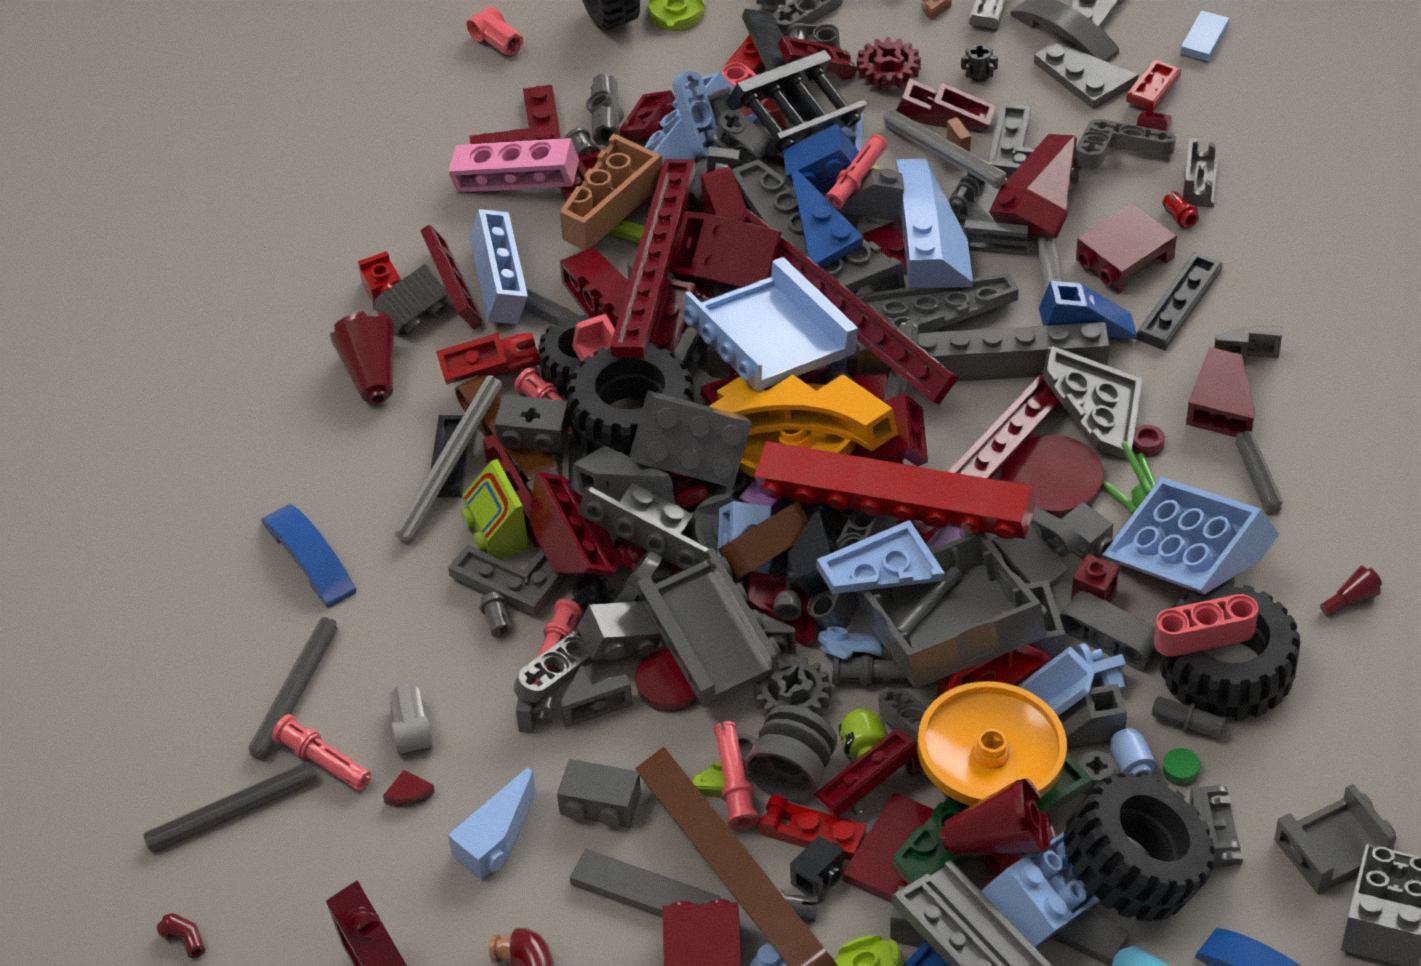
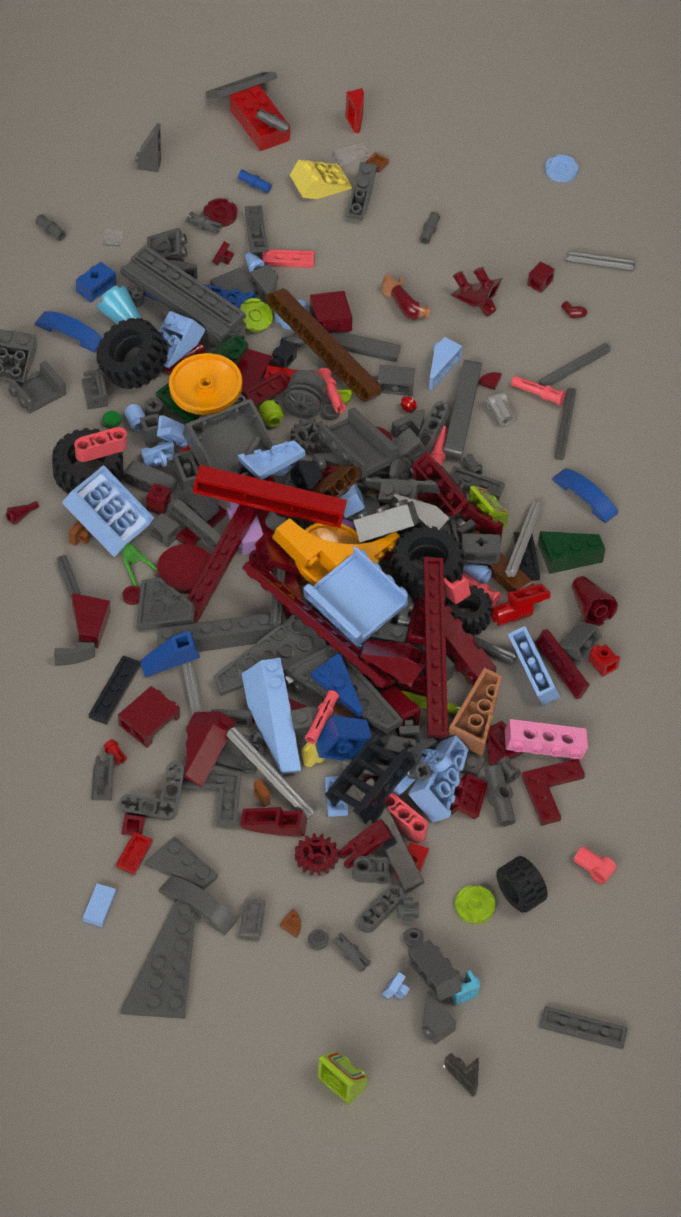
camera: 165 degrees right, 5 degrees up
(371, 440) = (570, 550): none -> dark green wedge
(478, 729) = (462, 409): none -> dark grey beam
(587, 742) = (408, 404): none -> red plate
(979, 62) = (254, 860): black gear -> none
(999, 824) = (197, 340): dark red cone -> none

